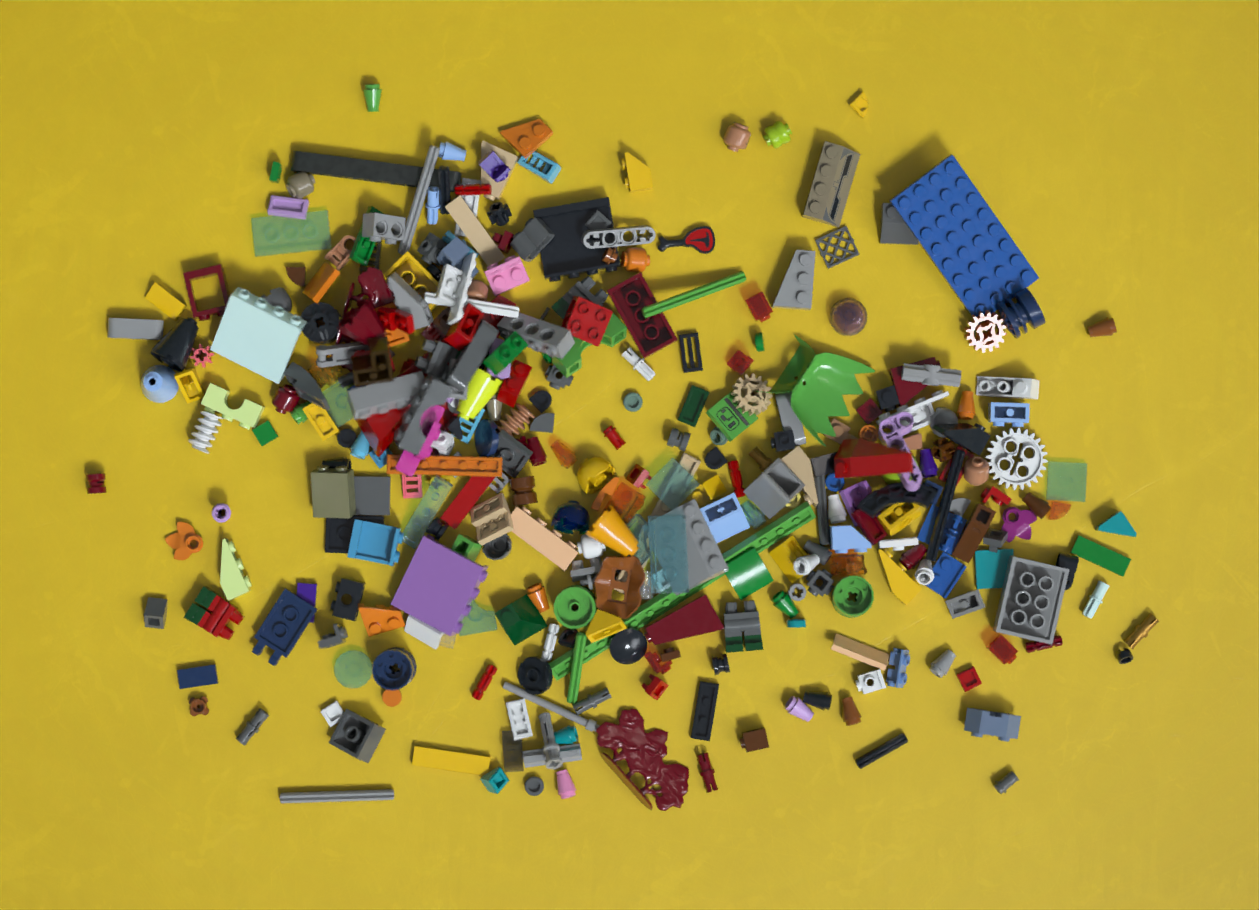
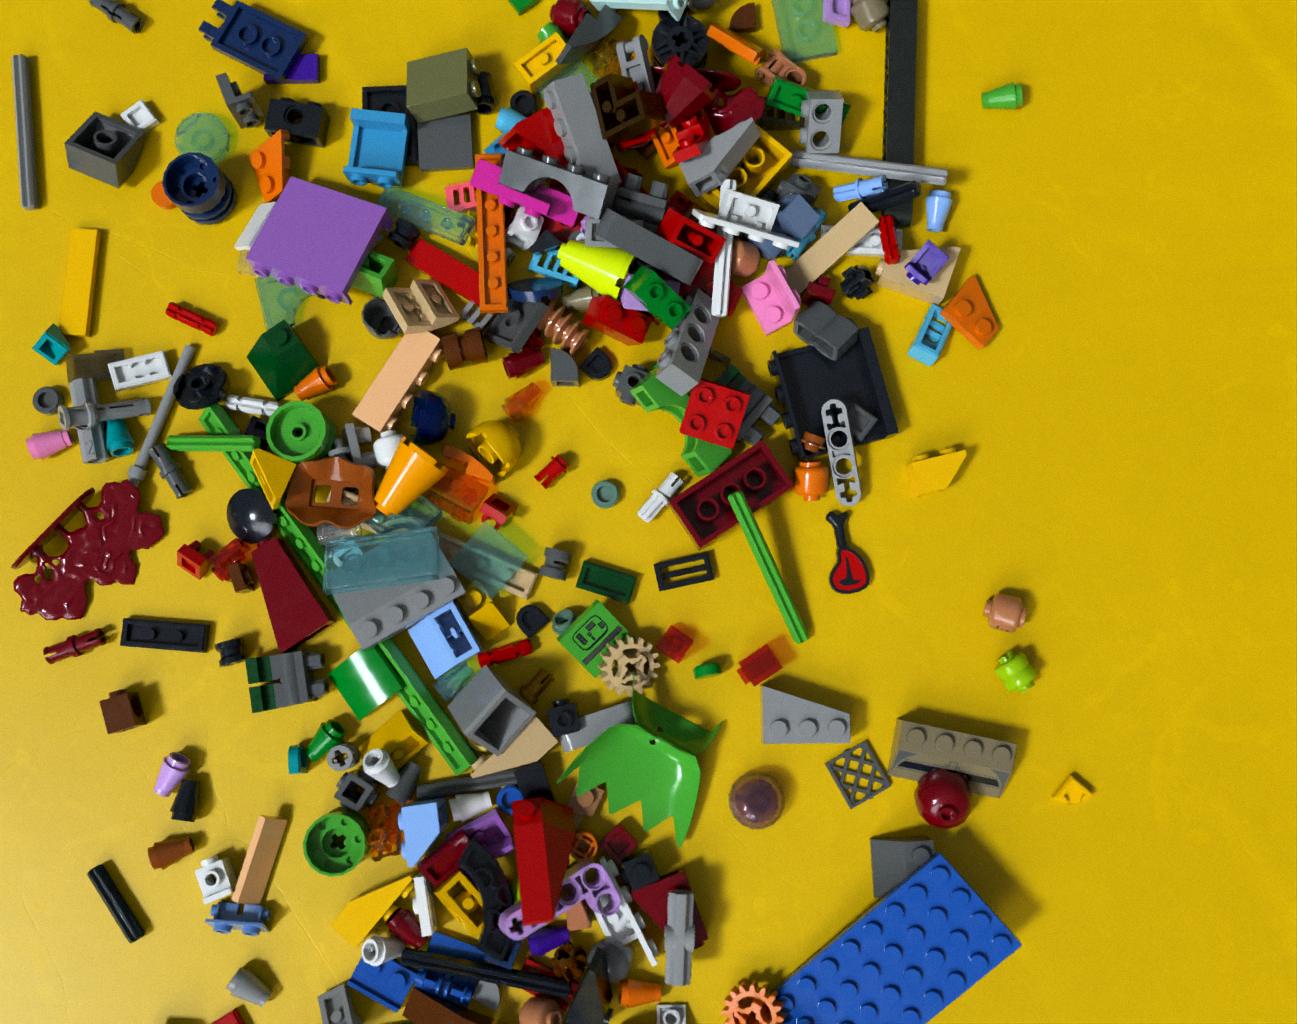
camera: 85 degrees right, 5 degrees down
(857, 192) = (943, 798): none -> dark red cylinder

